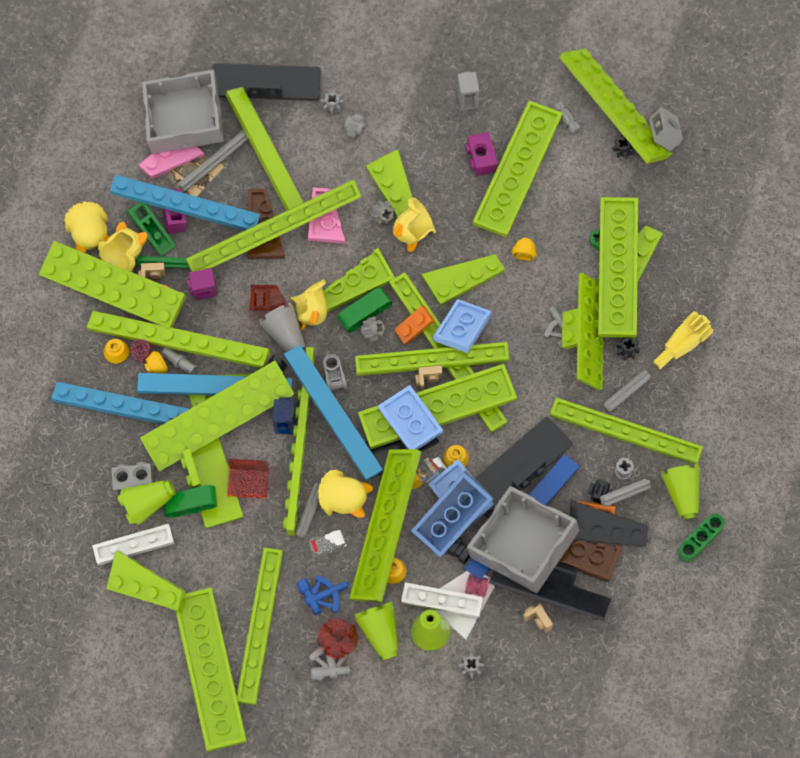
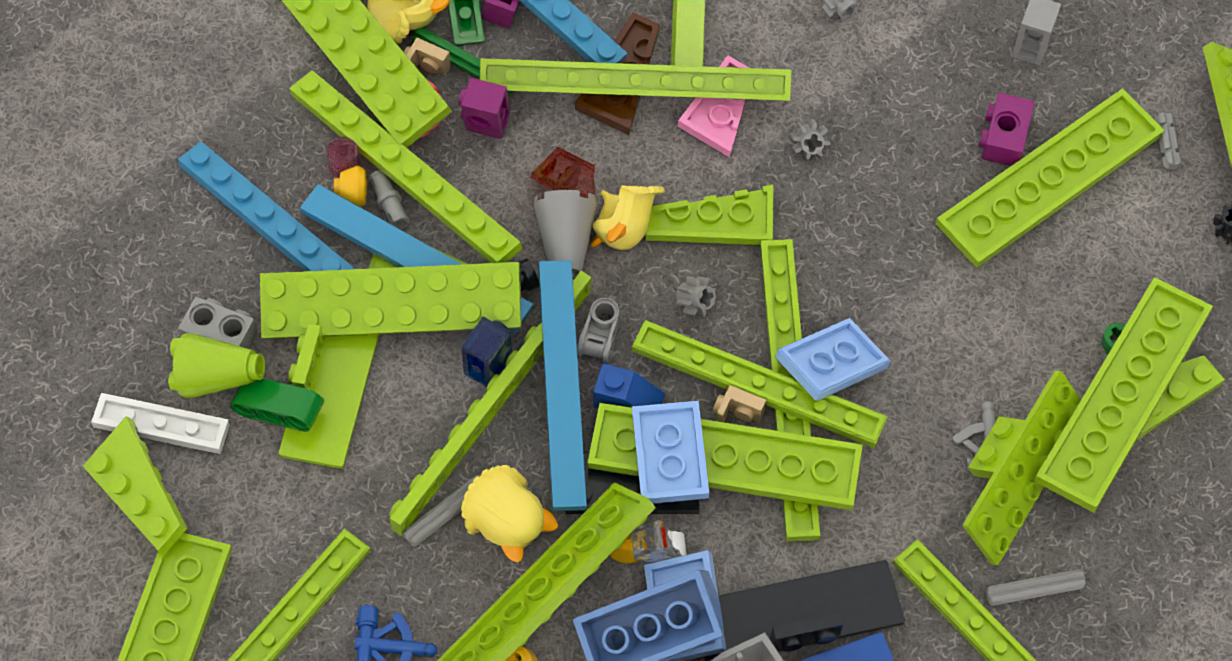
camera: 25 degrees right, 5 degrees down
(116, 351) = (309, 141): yellow cone -> none
(247, 478) = (381, 414): clear red slope -> none
(327, 544) = (439, 574): clear leg -> none
(364, 308) = (712, 260): green beam -> none
(366, 398) = (624, 388): none -> blue slope
(391, 181) = (849, 109): lime wing -> none
(413, 224) = (844, 177): light yellow hair -> none
(414, 325) = (761, 321): orange plate -> none
(454, 453) = (721, 553): yellow cone -> none
(460, 278) = (870, 291): lime wing -> none
(524, 249) = (993, 297): yellow cone -> none
(626, 352) = (1078, 529): black gear -> none
(687, 336) = (1172, 555): light yellow piece -> none

